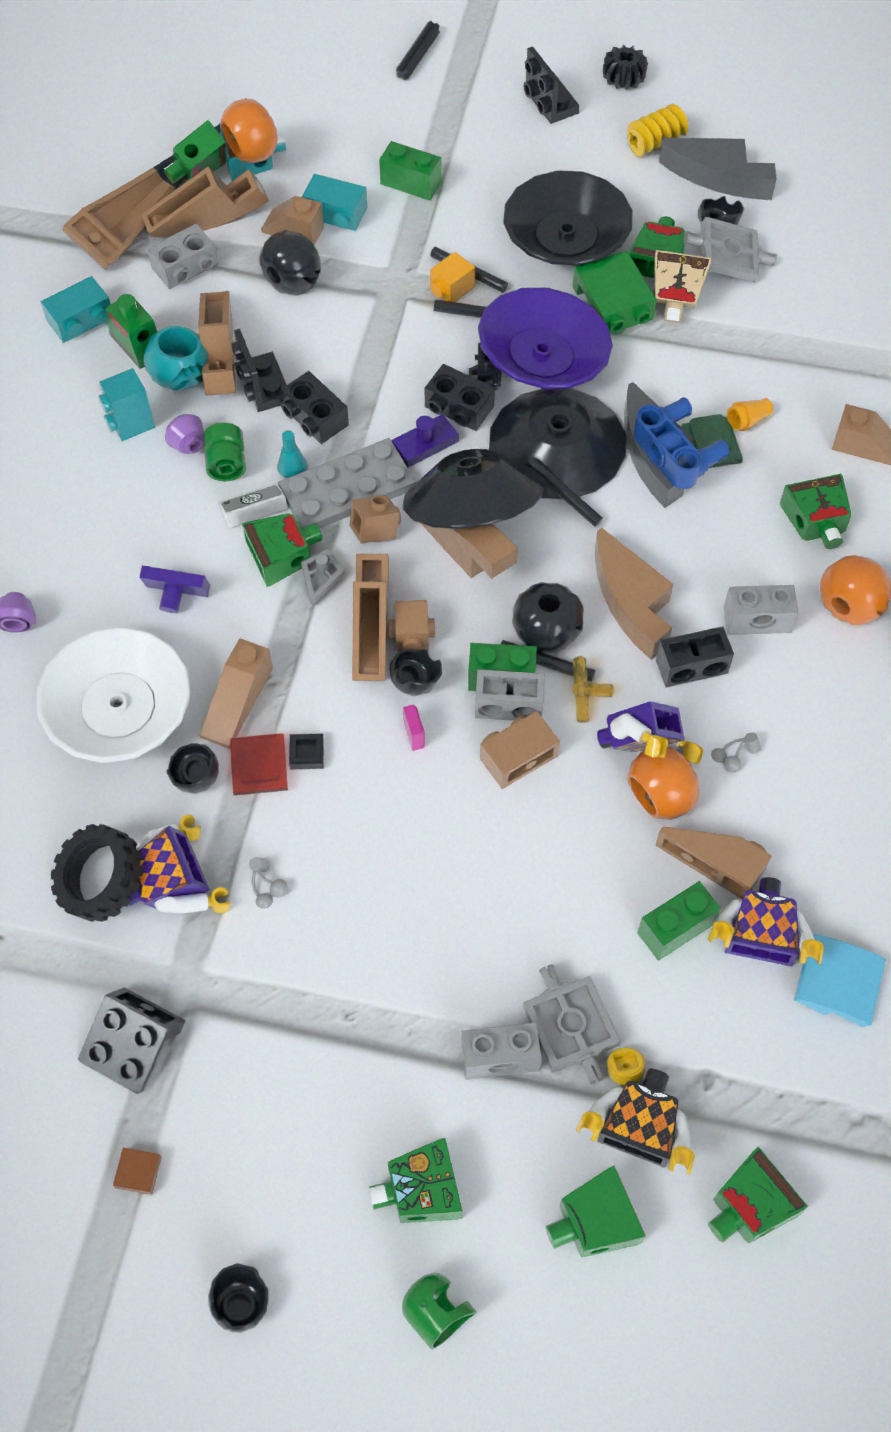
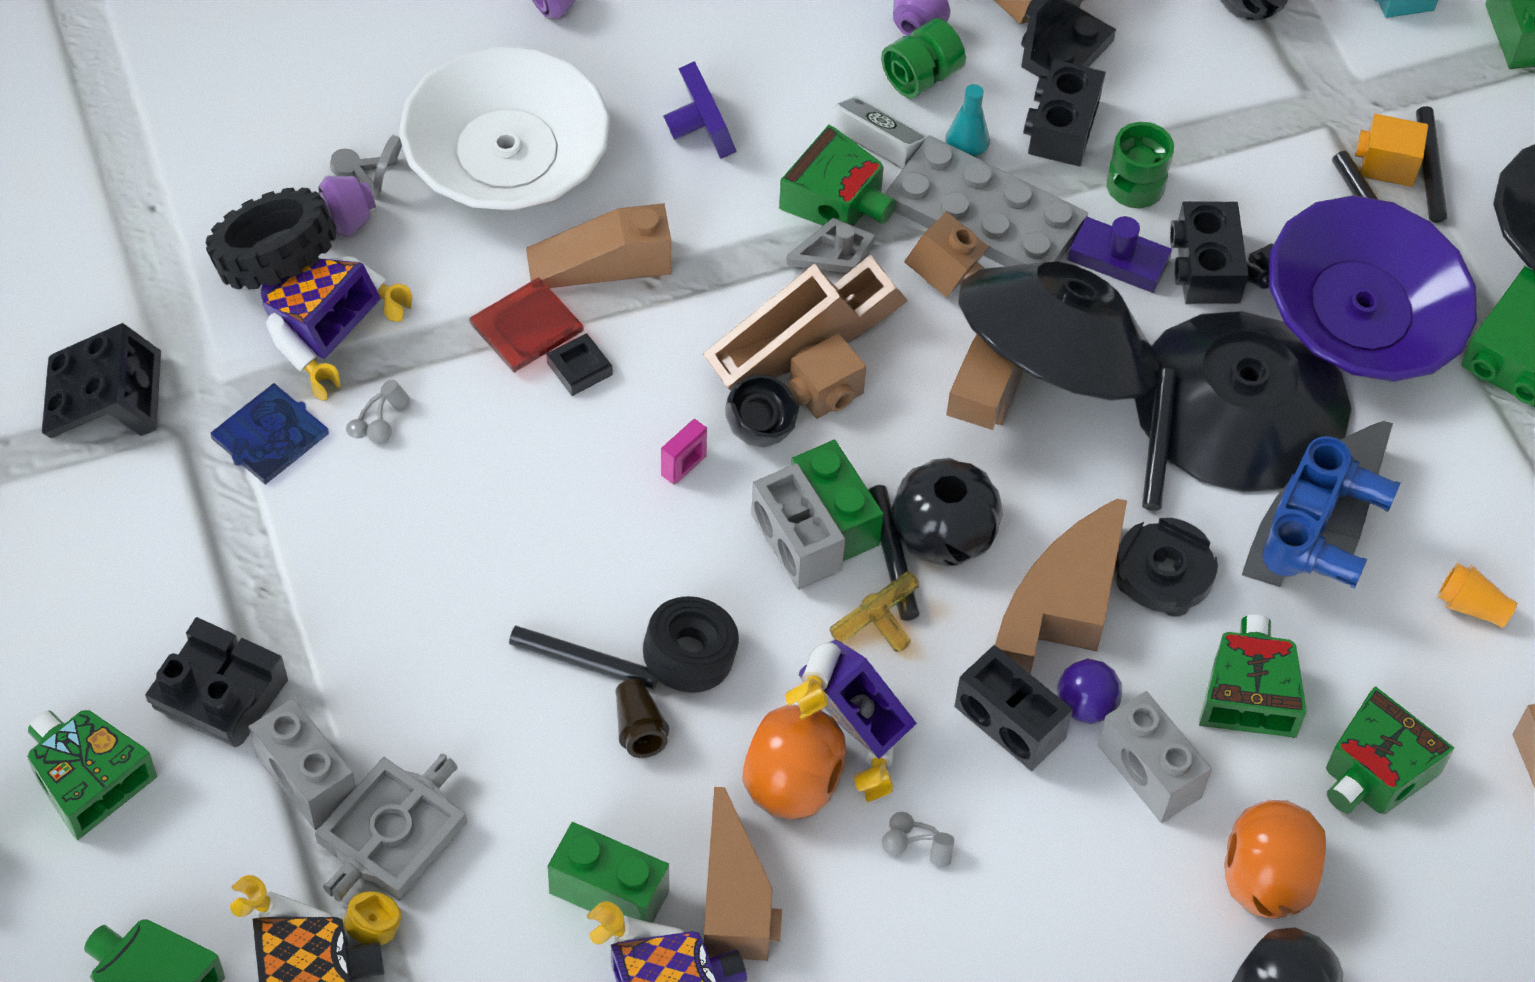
camera: 55 degrees right, 5 degrees down
(56, 802) = (348, 163): none -> light grey piece
(94, 811) = (347, 202): none -> medium lavender cone
(193, 768) = (471, 261): black hair -> none
(233, 954) = (269, 433): none -> clear blue piece
(380, 393) = (1140, 164): none -> green wheel
(413, 1090) = (218, 683): none -> black hips
(515, 858) = (580, 656): none -> black bar
(519, 749) = (737, 577): medium nougat brick -> none
(549, 812) = (696, 619): none -> black tyre
(579, 849) = (639, 720): none -> dark brown cone
(655, 524) = (1163, 590): none -> black plate
(702, 614) = (1090, 690): none -> dark purple piece
(710, 429) = (1397, 578): clear green piece -> none
(740, 538) = (1255, 682): none -> green torso

